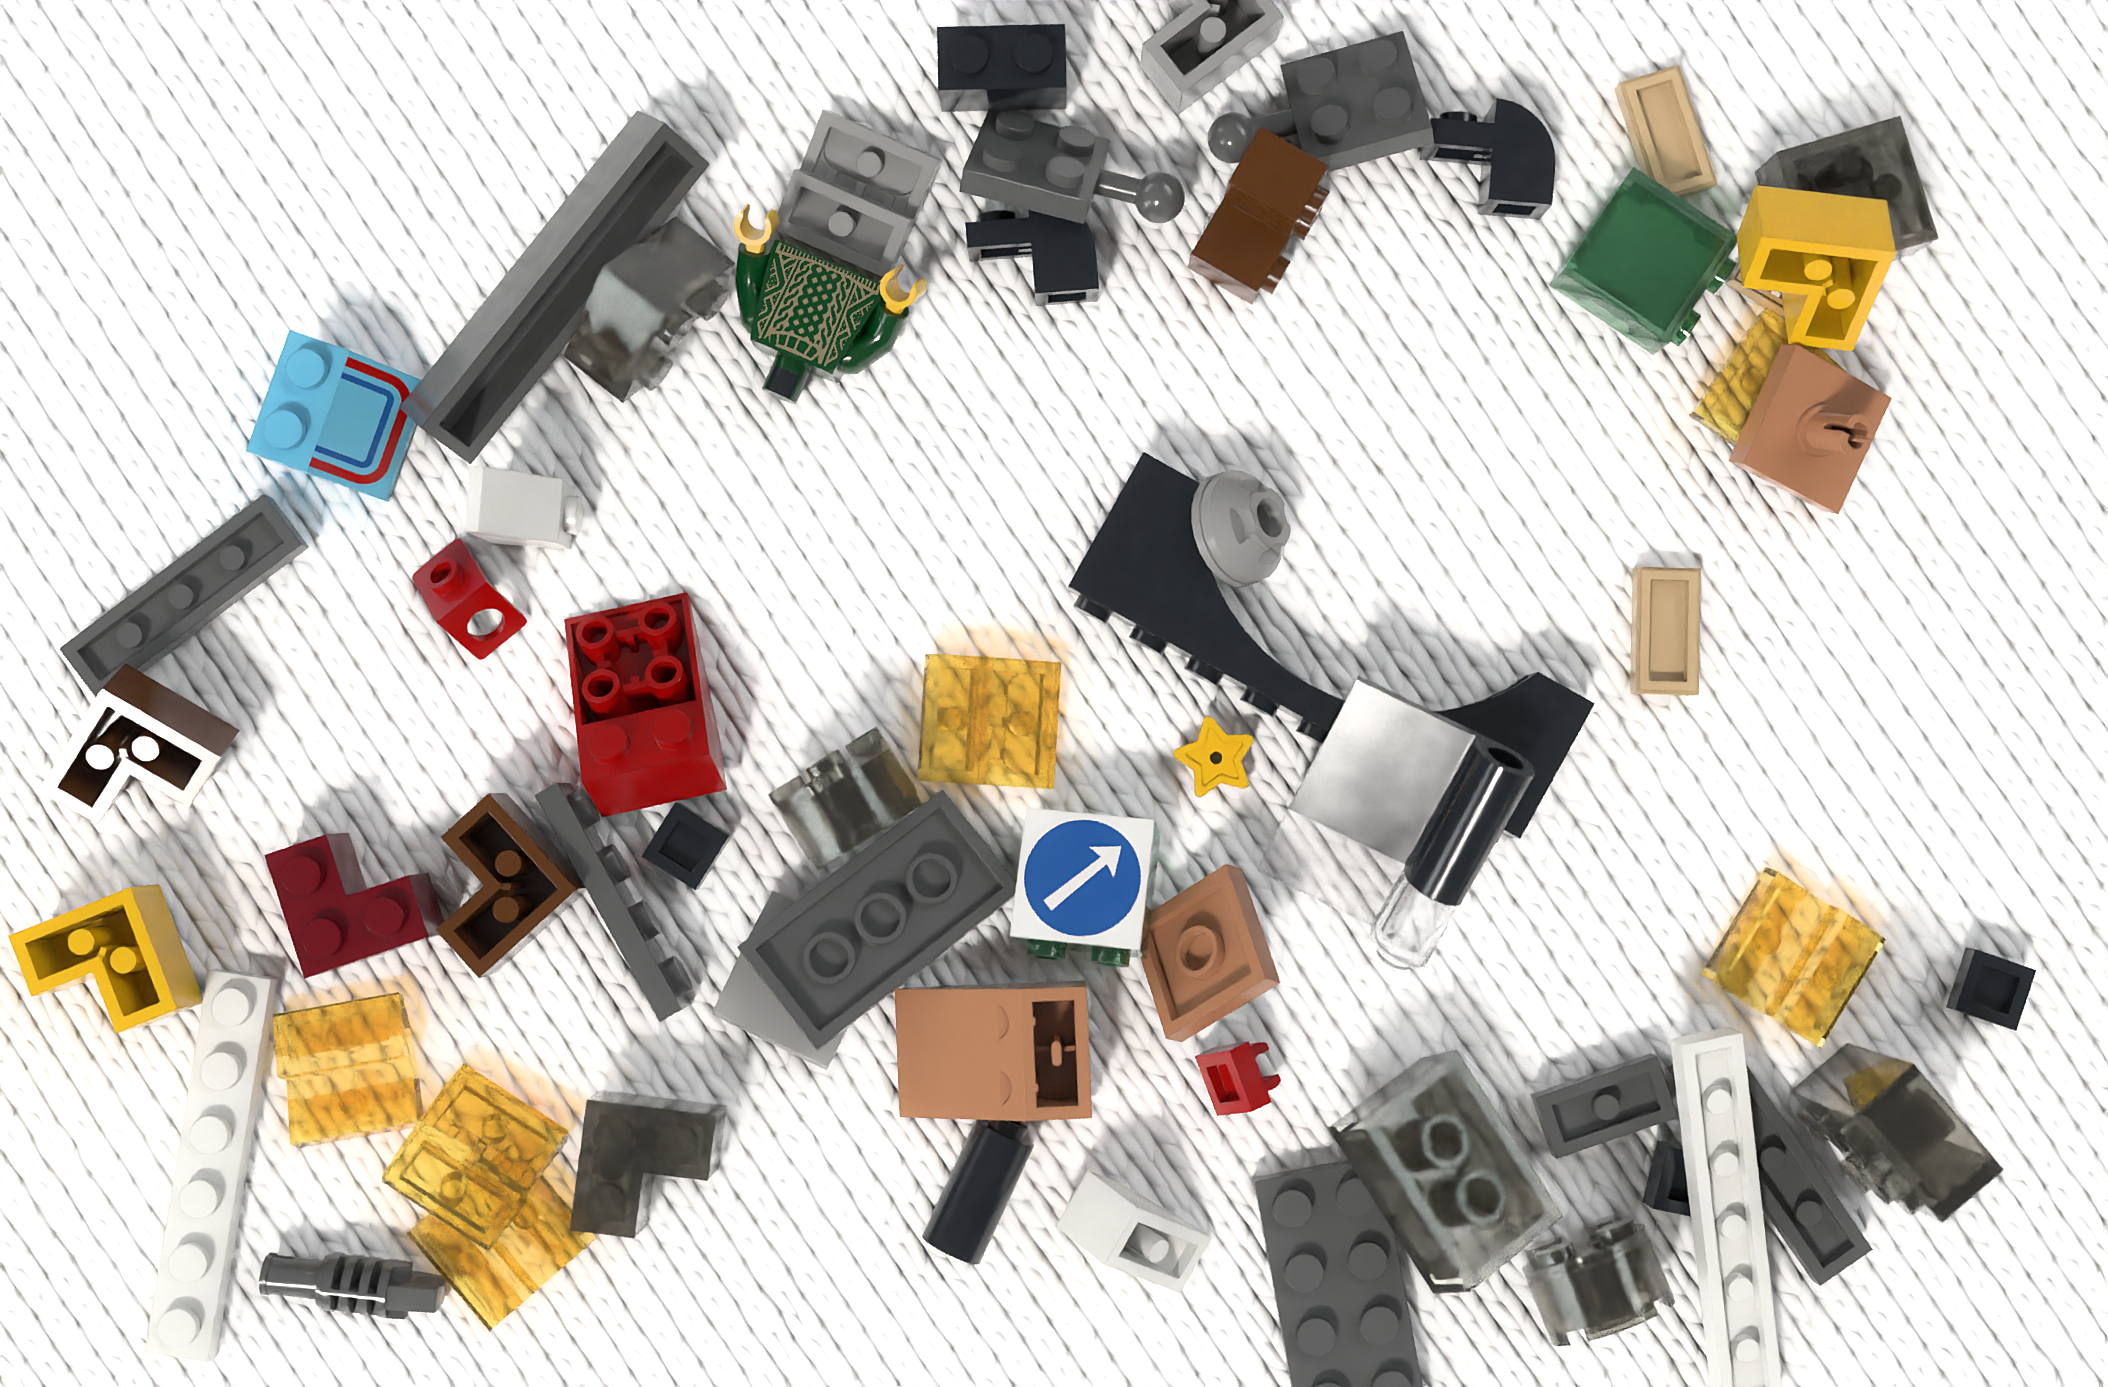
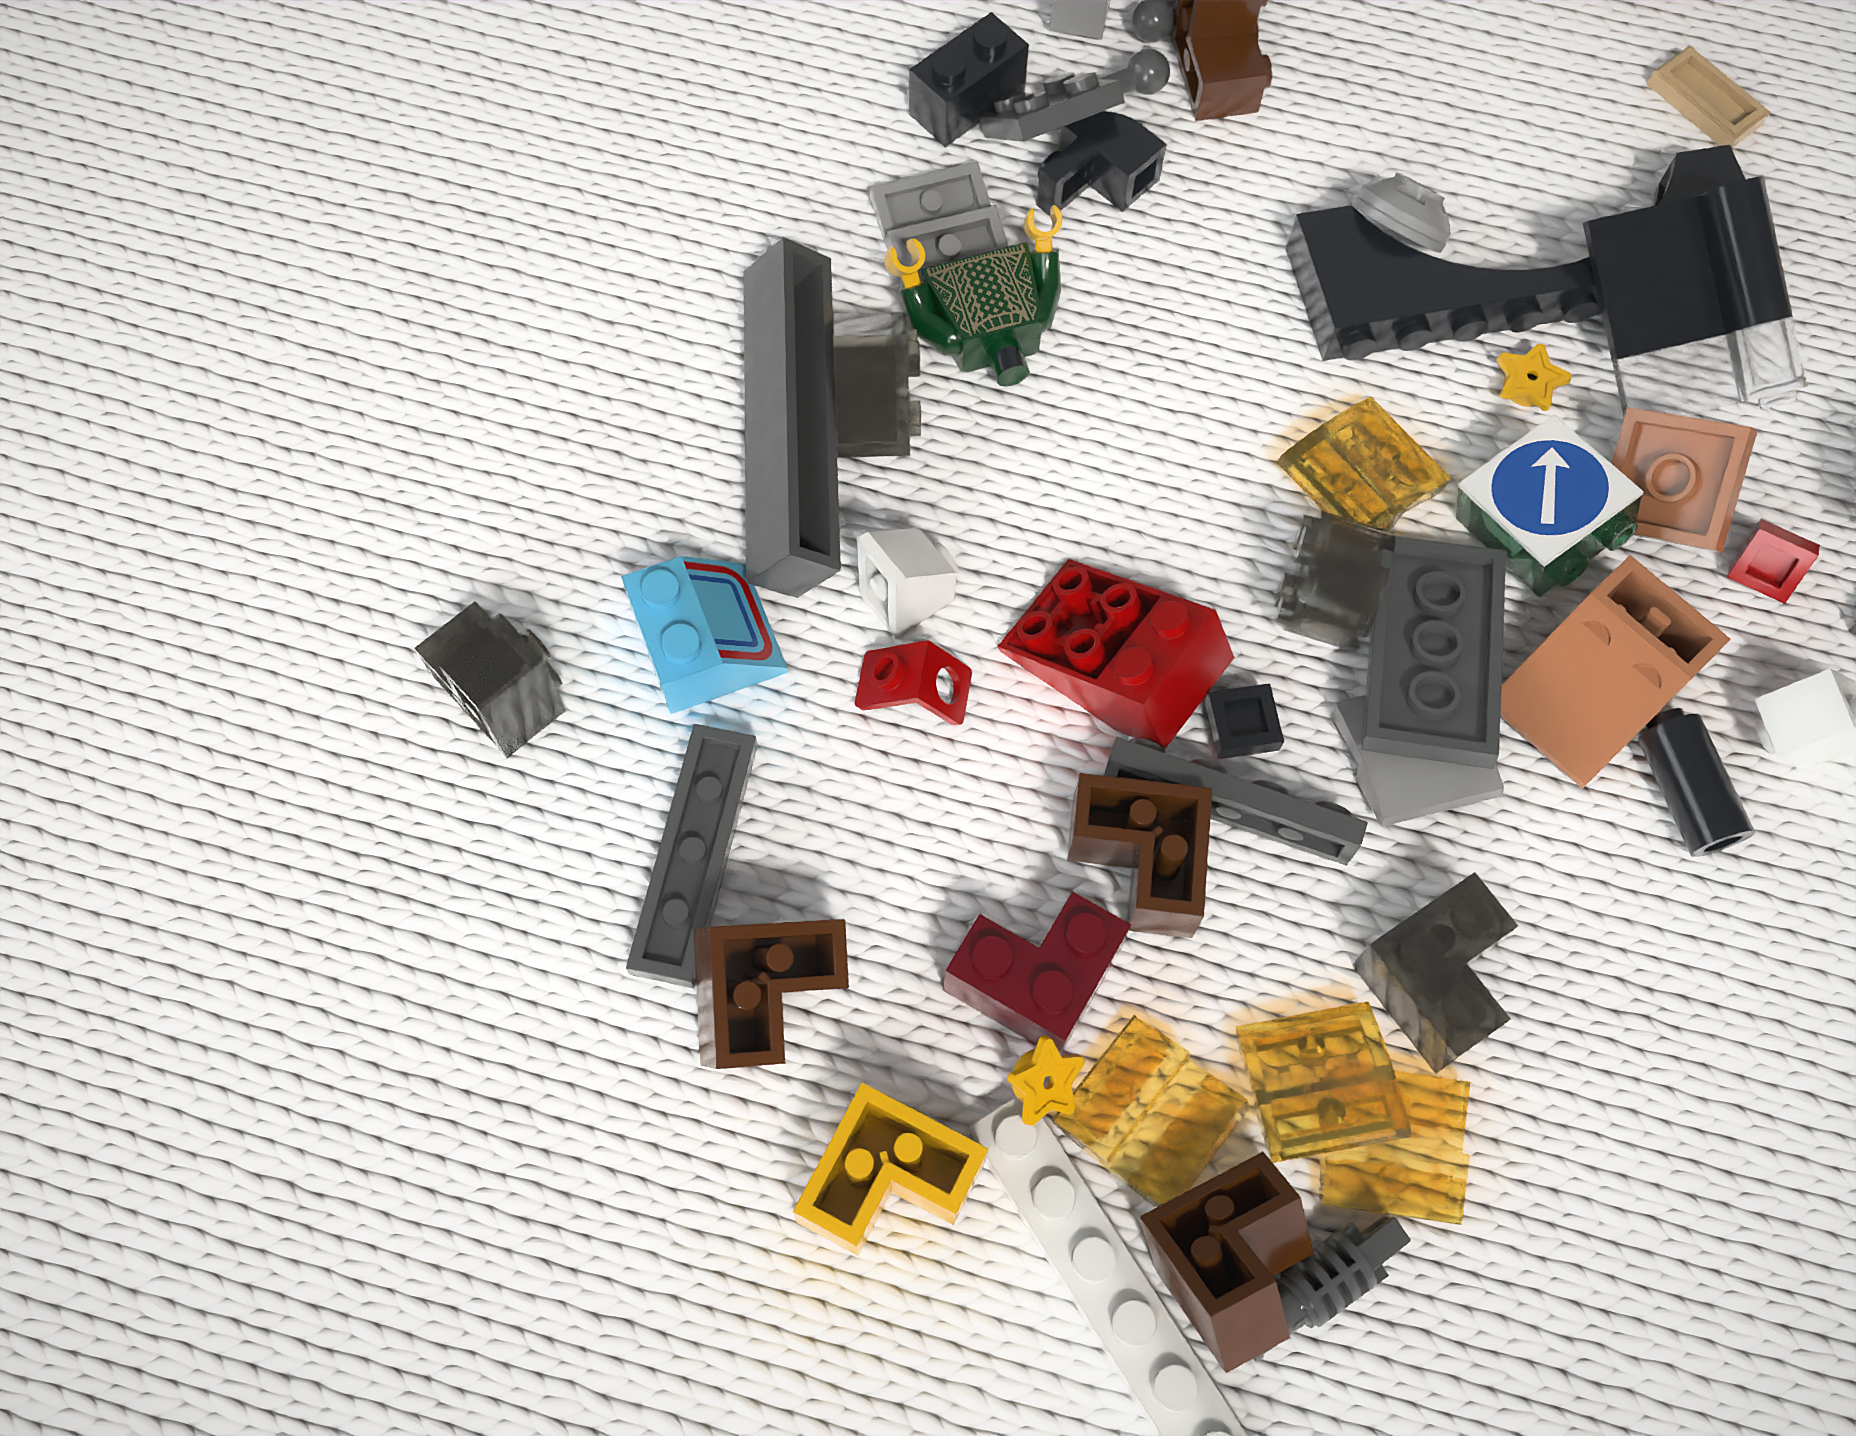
camera: 45 degrees left, 20 degrees down
(138, 327) = (495, 676): none -> clear smoke brick
(279, 975) = (1030, 1074): none -> yellow plate
(281, 1204) = (1221, 1254): none -> reddish brown brick

